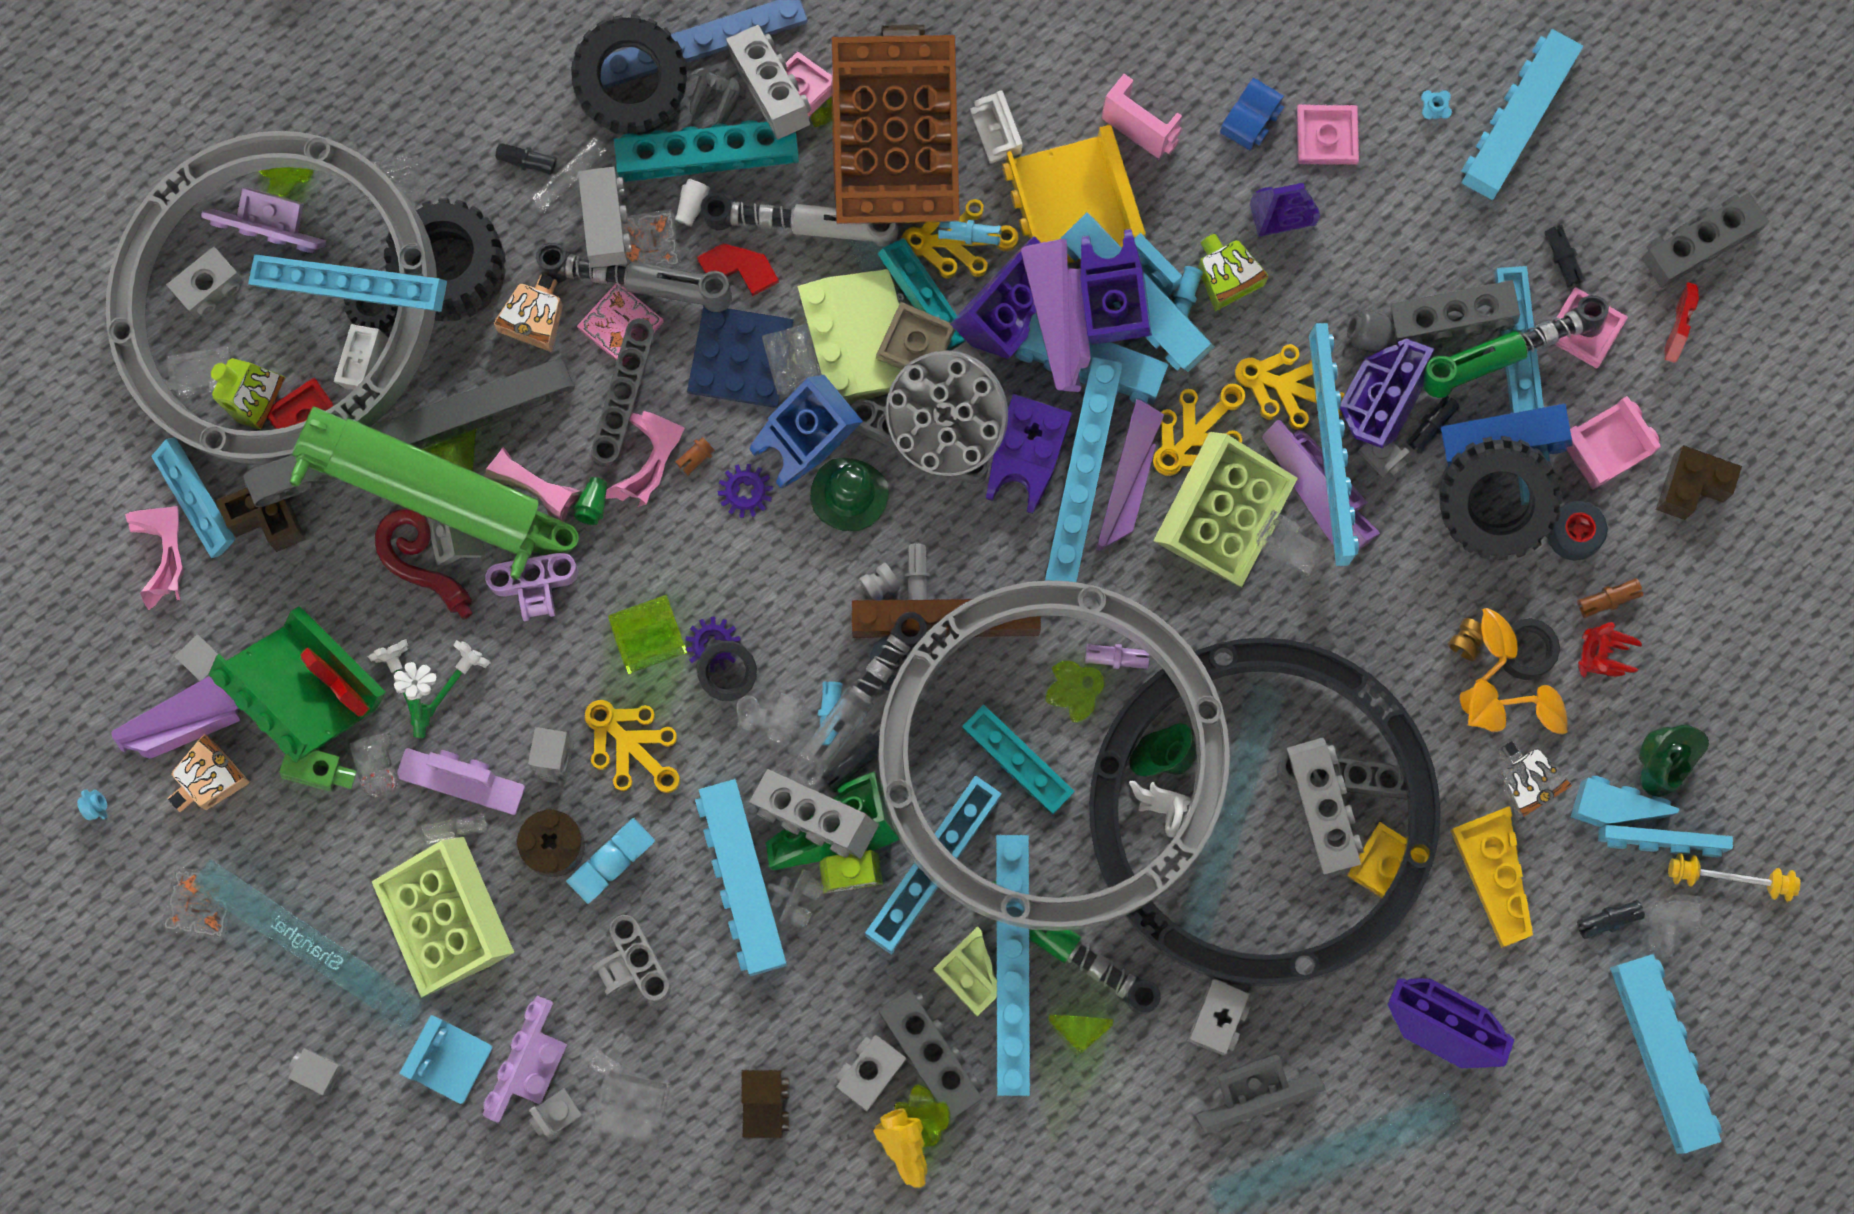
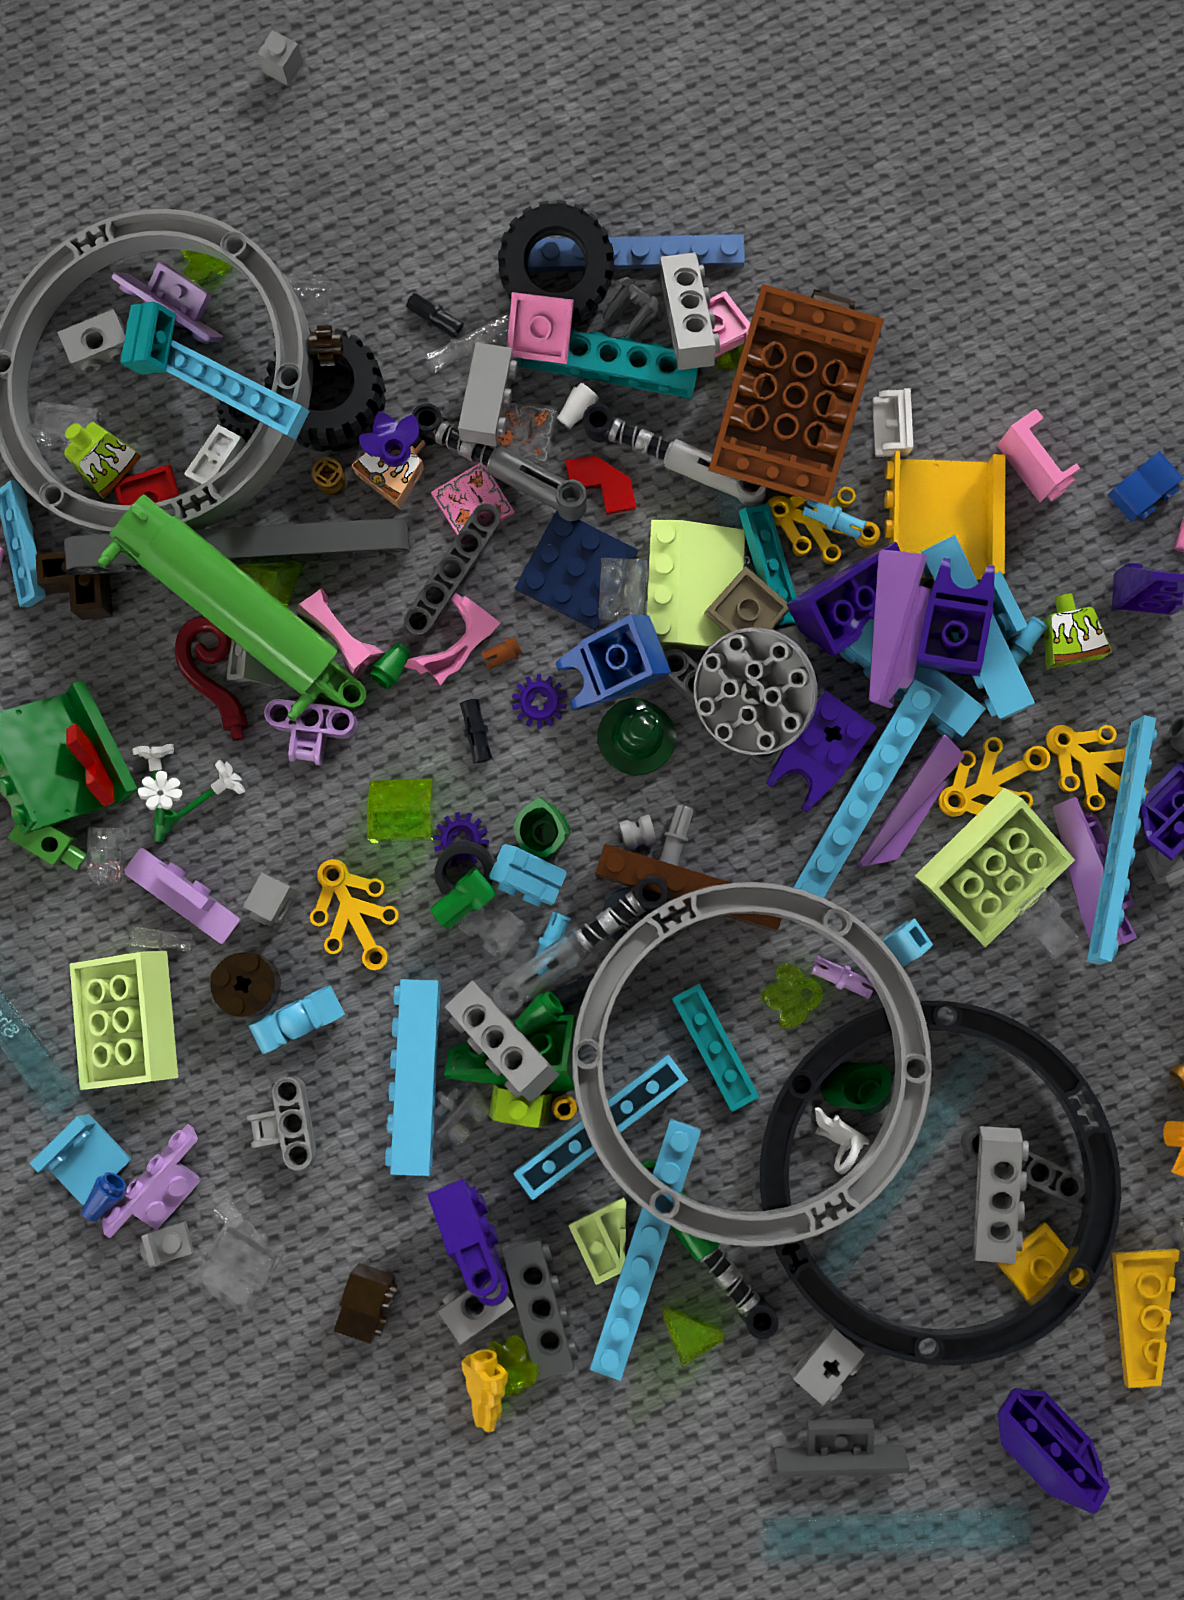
camera: 20 degrees right, 5 degrees up
(258, 263) = (148, 338): none -> teal brick
(436, 217) = (326, 345): none -> dark brown gear
(478, 346) = (331, 483): none -> pearl gold wheel
(479, 1085) = (103, 1196): none -> blue cone
(521, 284) = (391, 436): none -> dark purple plate
(634, 139) = (540, 327): none -> bright pink tile
(694, 536) = (476, 731): none -> black pin
(738, 688) = (469, 893): none -> green piece
(788, 653) = (528, 875): none -> medium azure brick
(799, 604) = (554, 829): none -> green helmet
(842, 777) = (539, 1013): none -> green cone
(843, 1004) = (470, 1239): none -> dark purple brick
(896, 869) = (564, 1099): none -> yellow pin
(1165, 600) = (907, 942): none -> medium azure brick

